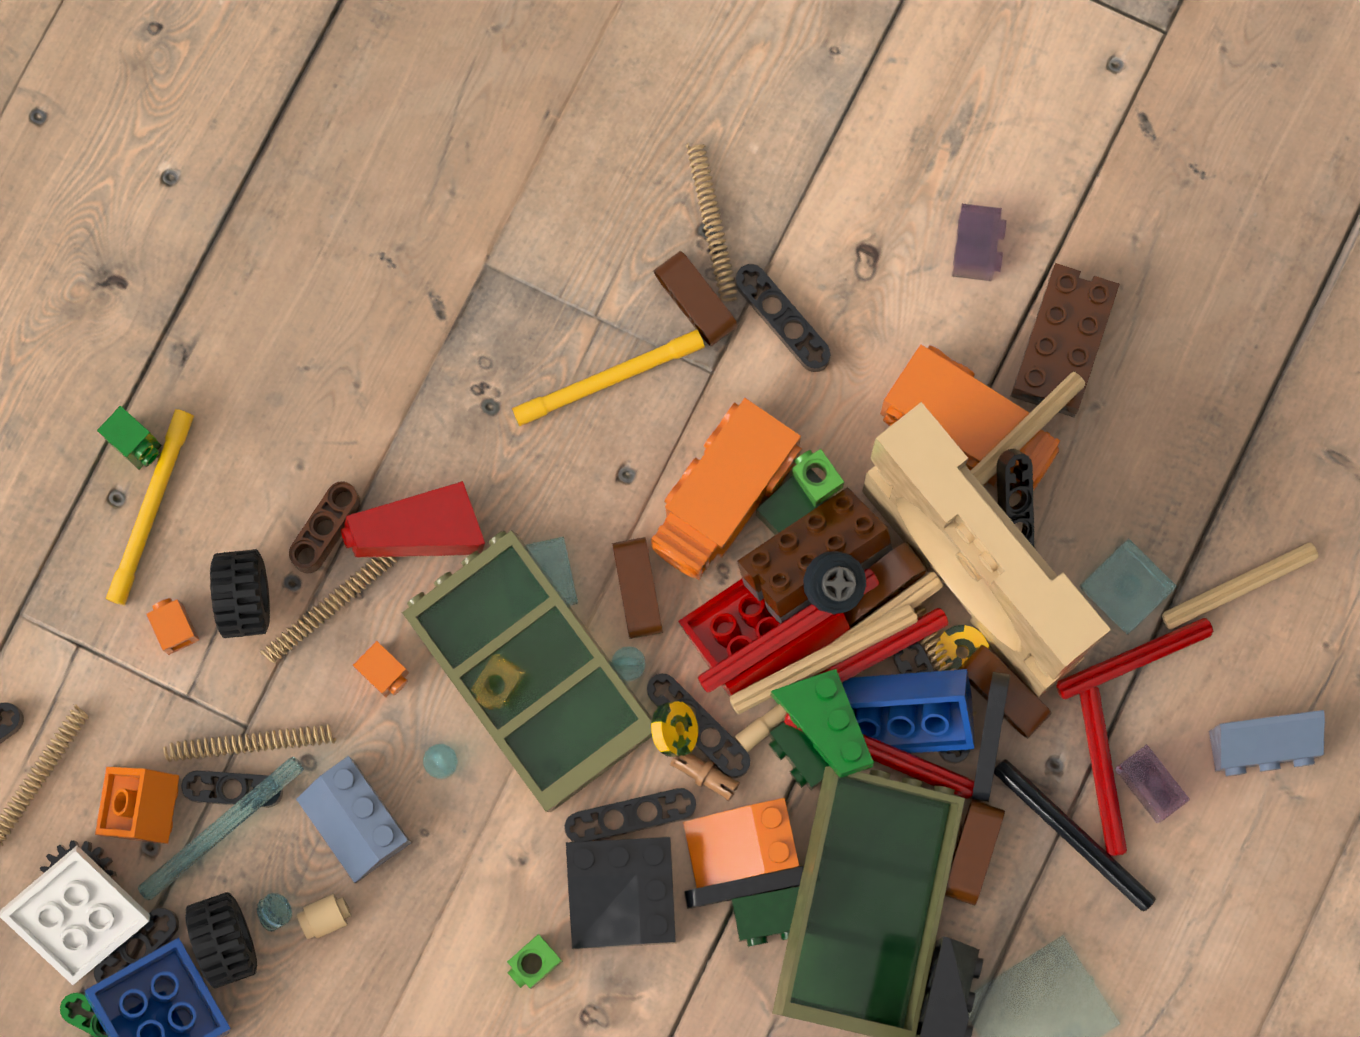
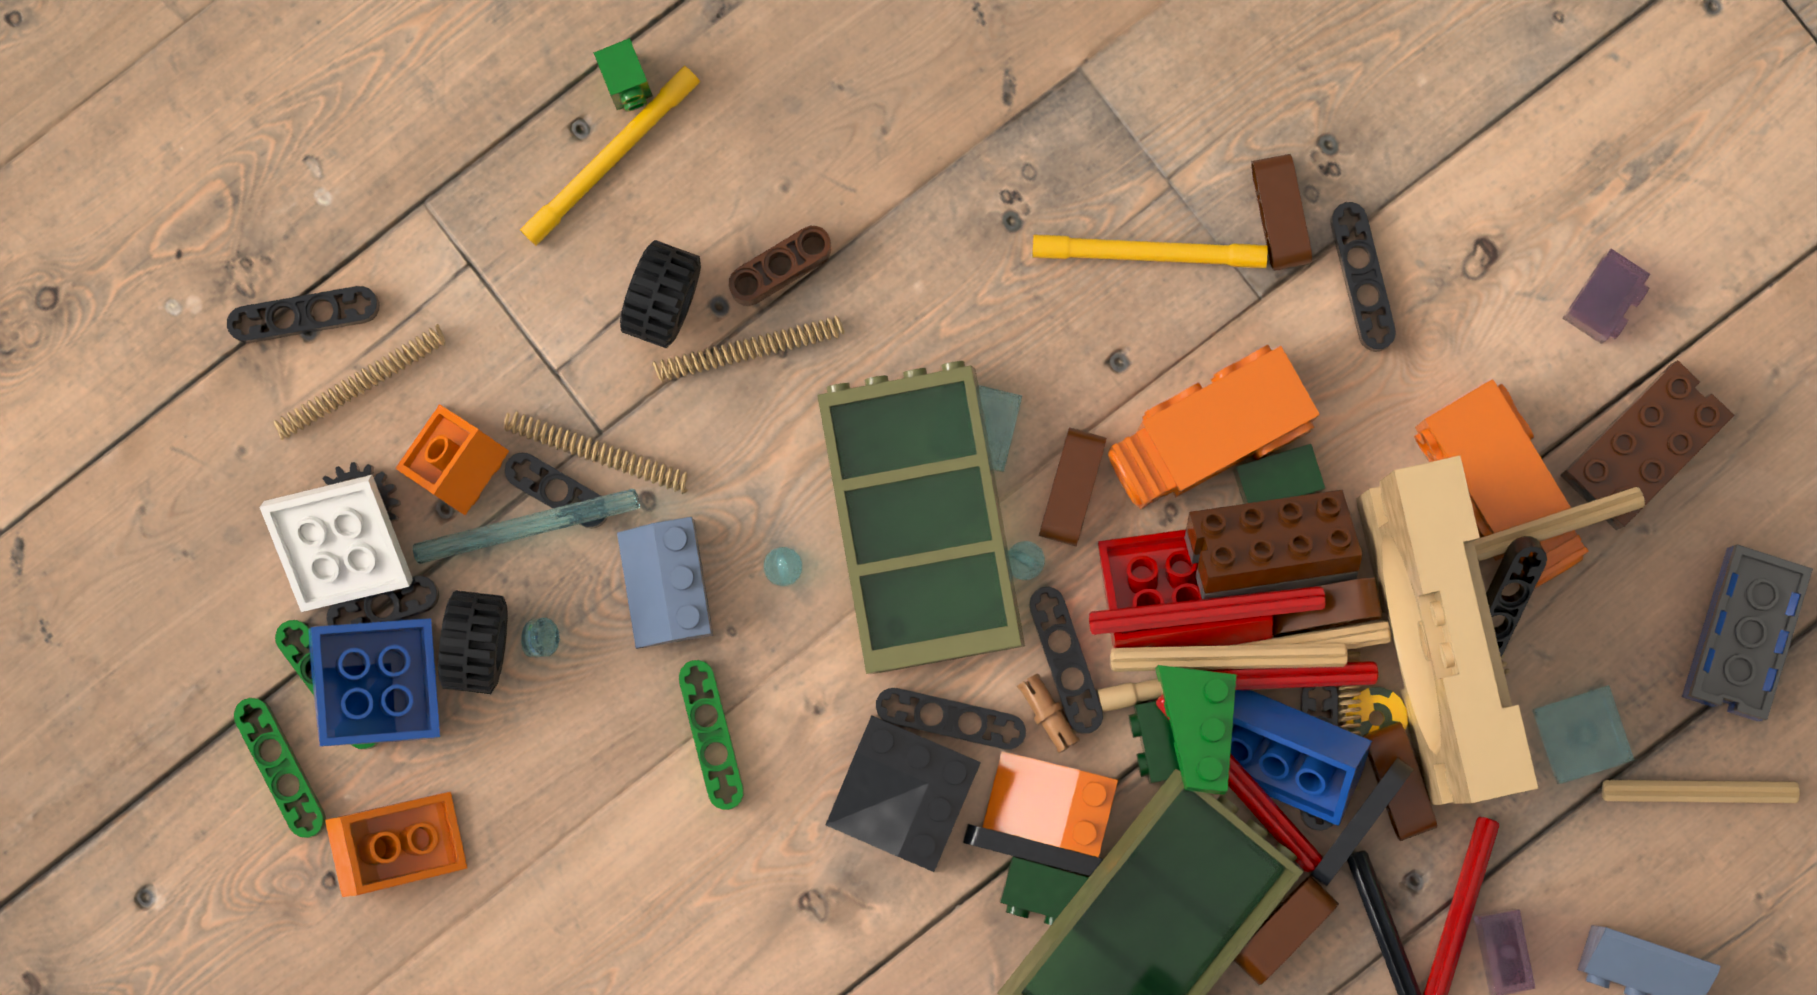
camera: 25 degrees right, 5 degrees up
(172, 625) = (574, 291): orange brick -> none
(324, 916) = (588, 668): tan brick -> none
(382, 670) = (768, 443): orange brick -> none
(420, 525) = (878, 312): red slope -> none
(444, 924) = (707, 735): none -> green beam
(508, 671) = (896, 509): clear yellow brick -> none
(549, 959) = (797, 821): bright green brick -> none
(674, 729) = (1039, 653): yellow piece -> none
(715, 222) = (1334, 139): tan piece -> none
(817, 491) = (1310, 481): bright green brick -> none
(847, 585) = (1279, 600): black wheel -> none
(1134, 658) = (1554, 813): red axle -> none
(1213, 445) = (1747, 632): none -> dark grey piece

